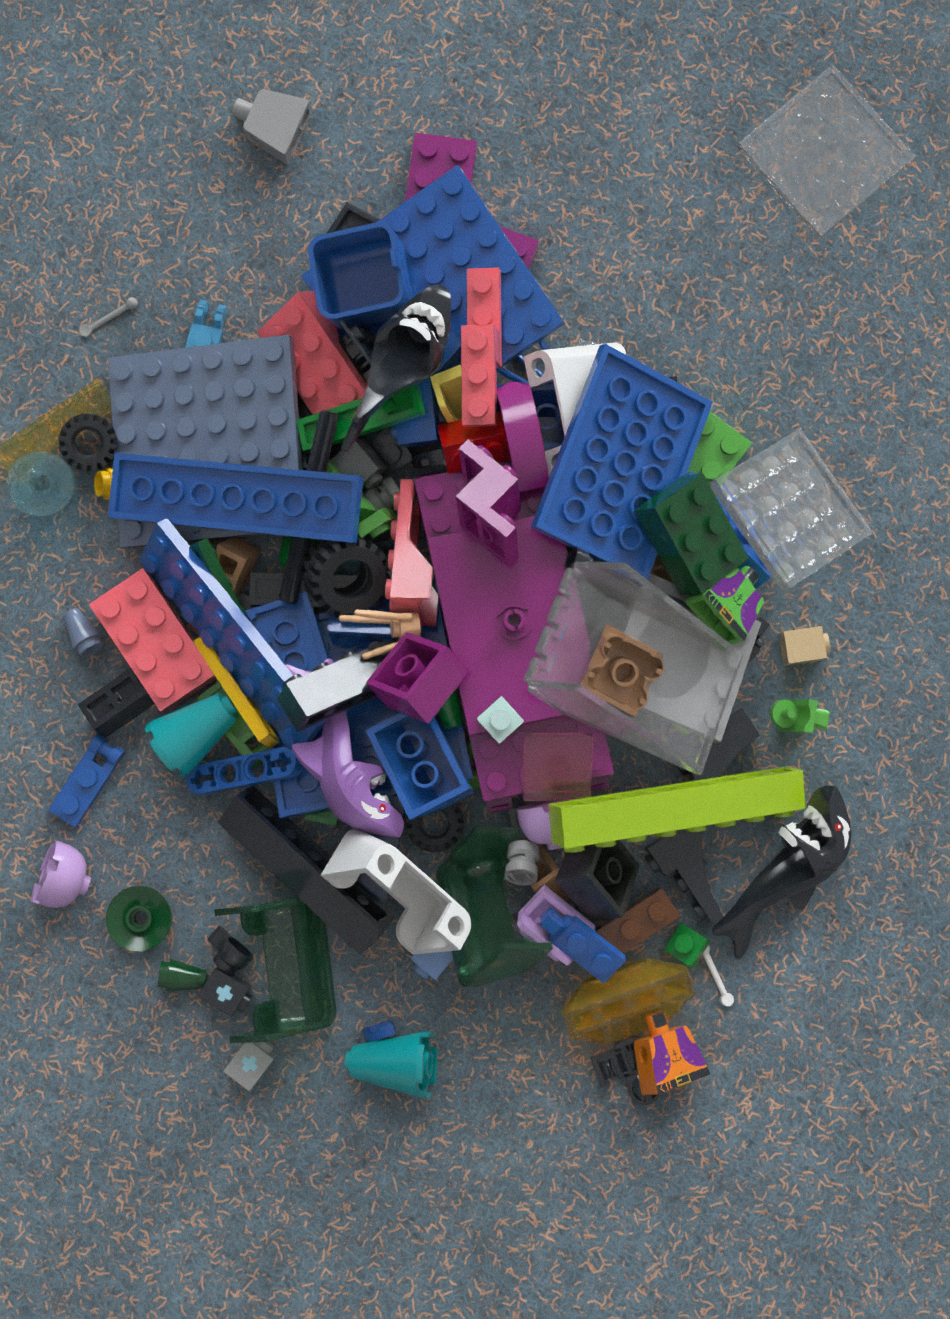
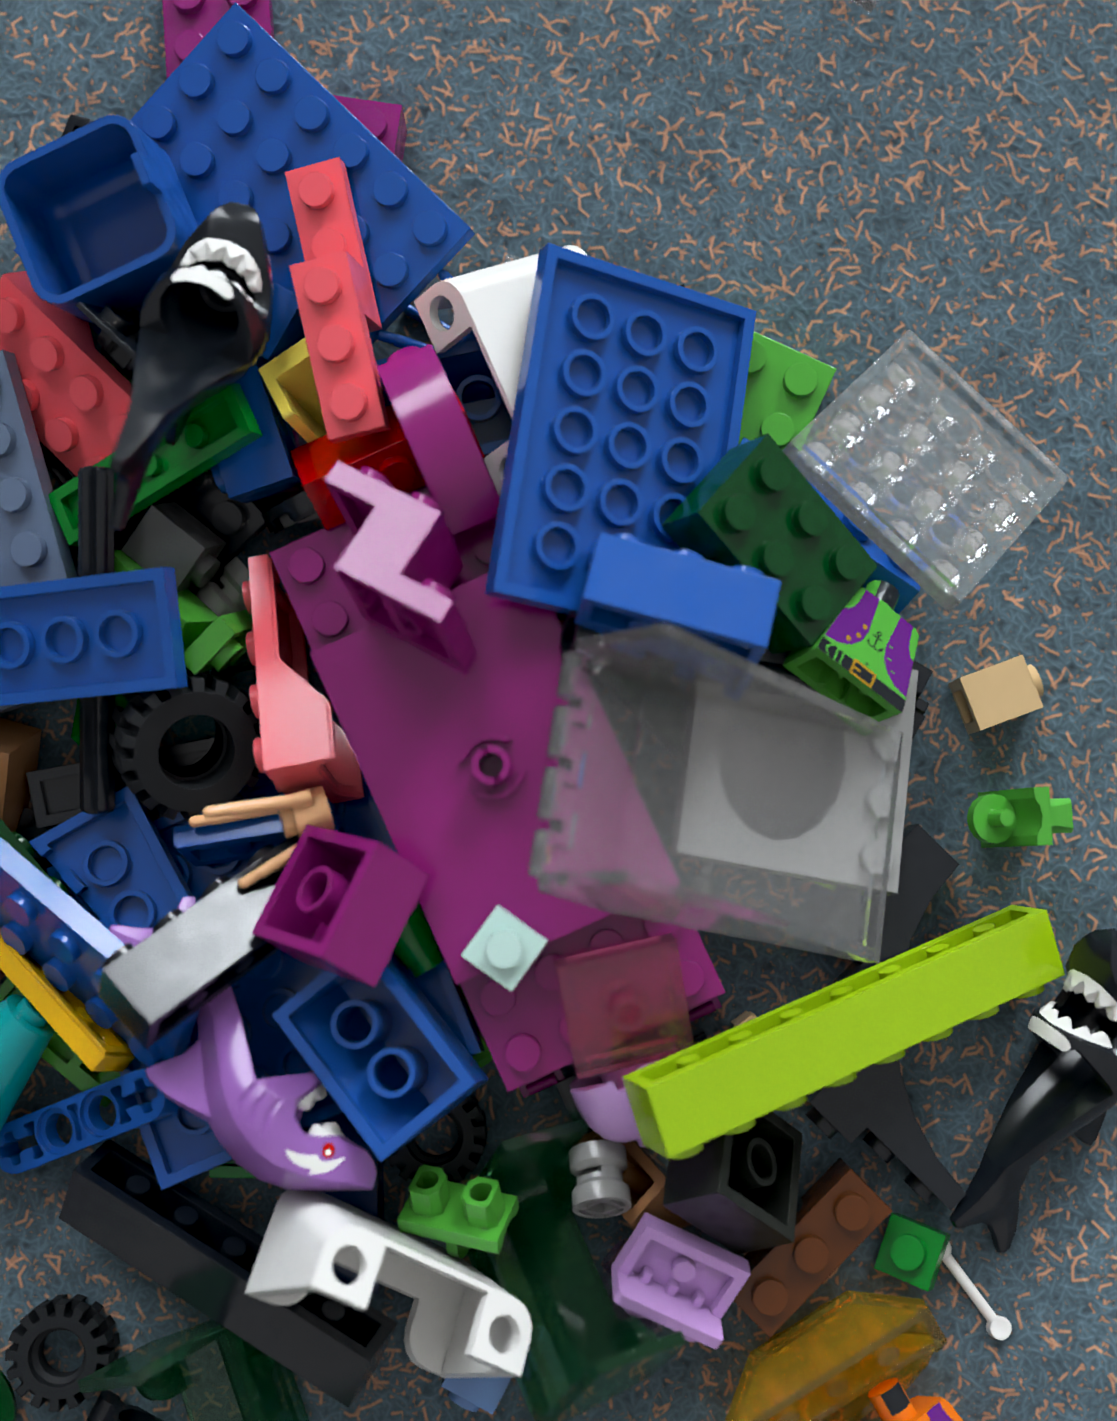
camera: 10 degrees left, 0 degrees up
(183, 892) = (29, 1358): none -> black tyre
(442, 865) = (456, 1212): none -> bright green hips
(583, 944) = (735, 1304): blue hinge -> none
(619, 541) = (649, 586): none -> blue wedge
(622, 670) = (702, 813): medium nougat slope -> none

